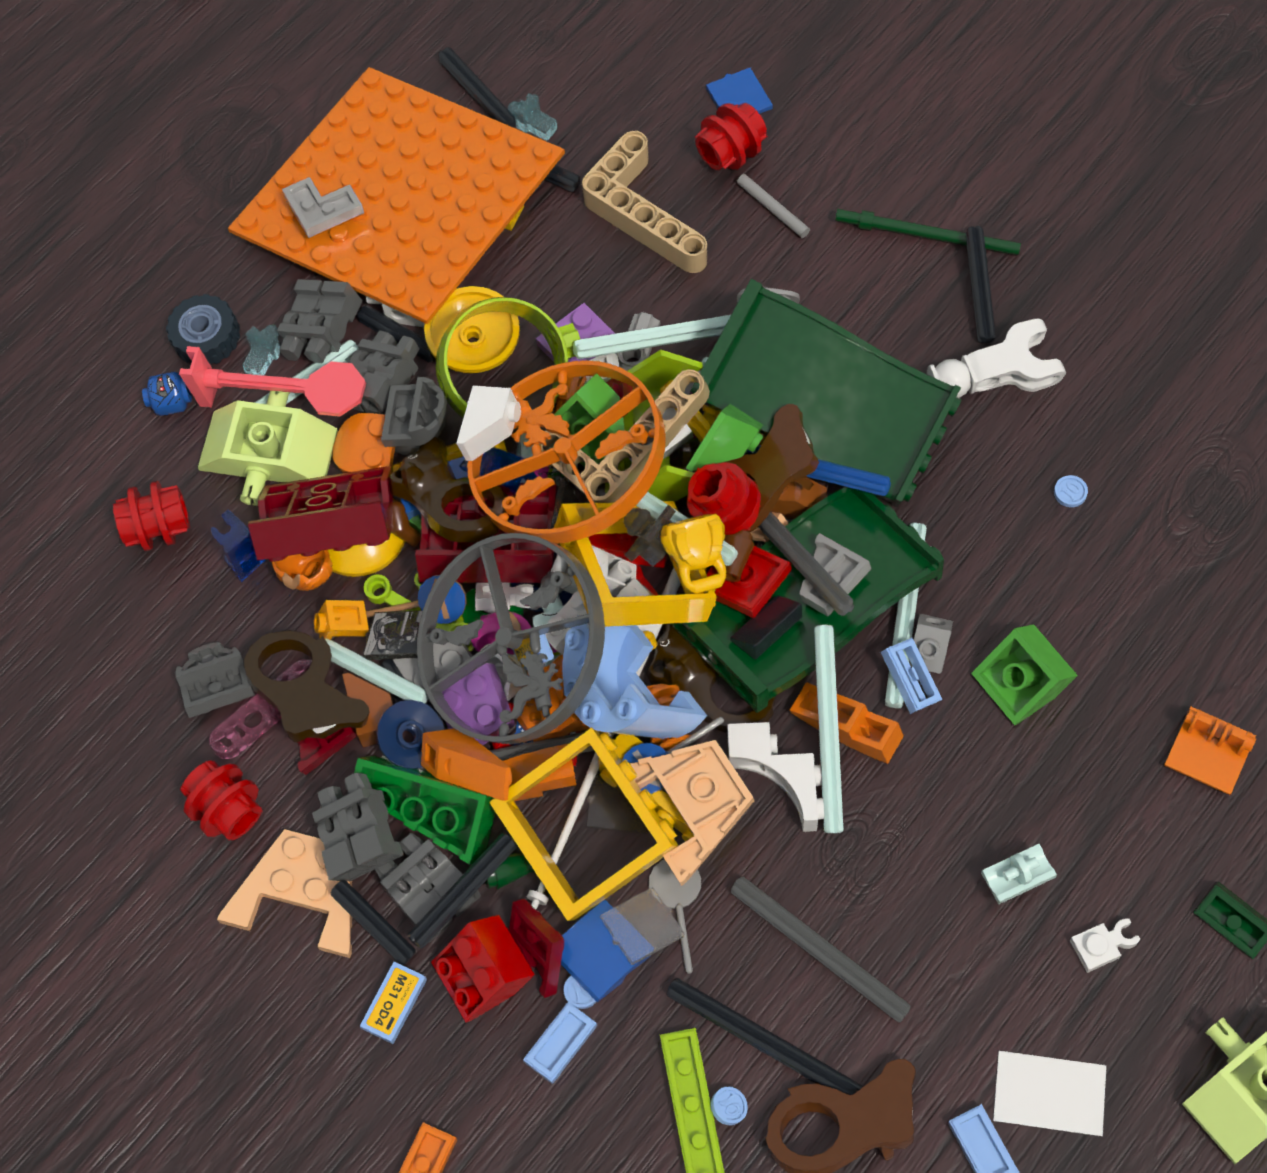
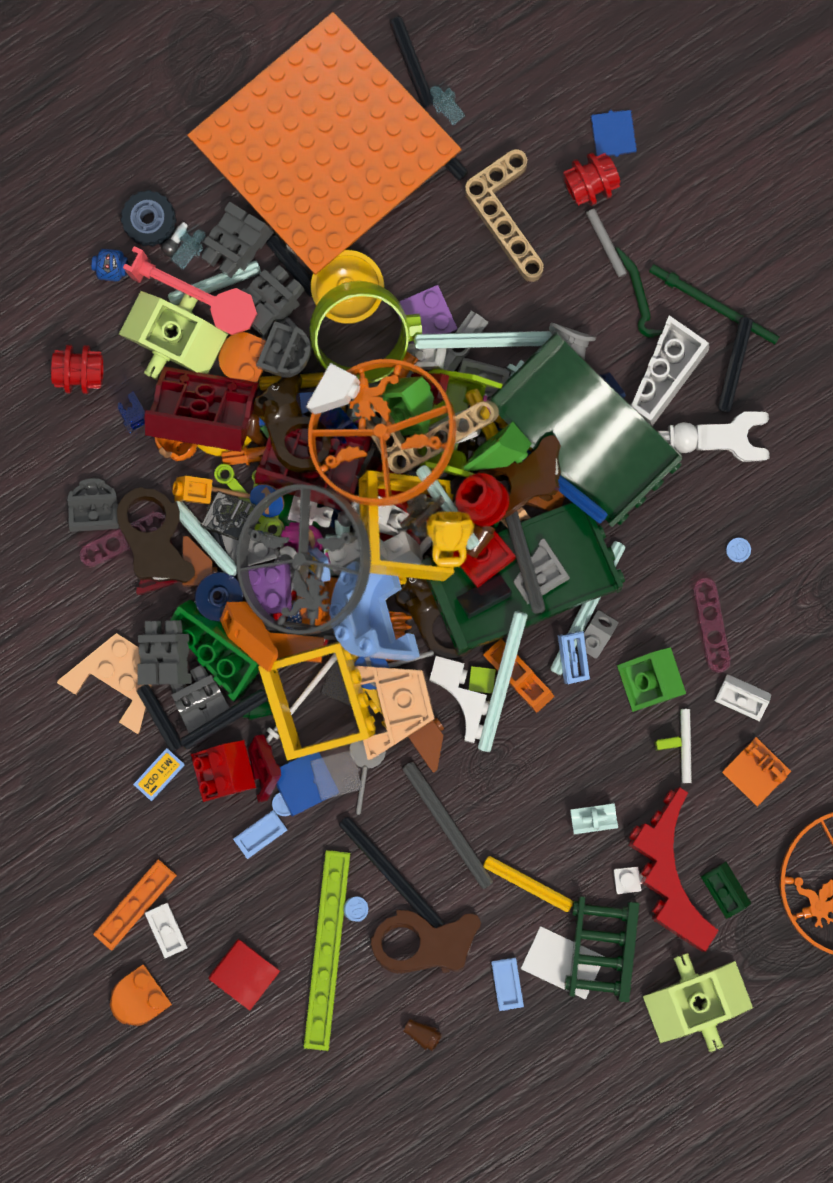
camera: 10 degrees right, 20 degrees up
(221, 800) = (78, 603): red piece -> none
(239, 352) = (171, 245): none -> piece
(319, 212) = (261, 153): light grey plate -> none
(395, 562) = (246, 456): none -> orange axle
(754, 844) = (429, 743): none -> dark orange slope
(799, 740) = (482, 680): none -> lime tile
(836, 250) = (640, 295): none -> dark green piece
(904, 301) = (670, 366): none -> white wedge
(961, 994) = (528, 884): none -> yellow axle
(1079, 585) = (714, 625): none -> clear pink beam
(1079, 747) = (668, 743): none -> lime tile
(1103, 747) = (686, 745): none -> white bar
(1127, 1027) = (622, 963): none -> dark green fence
(1152, 664) = (743, 697): none -> white slope
(1178, 962) = (661, 876): none -> red arch

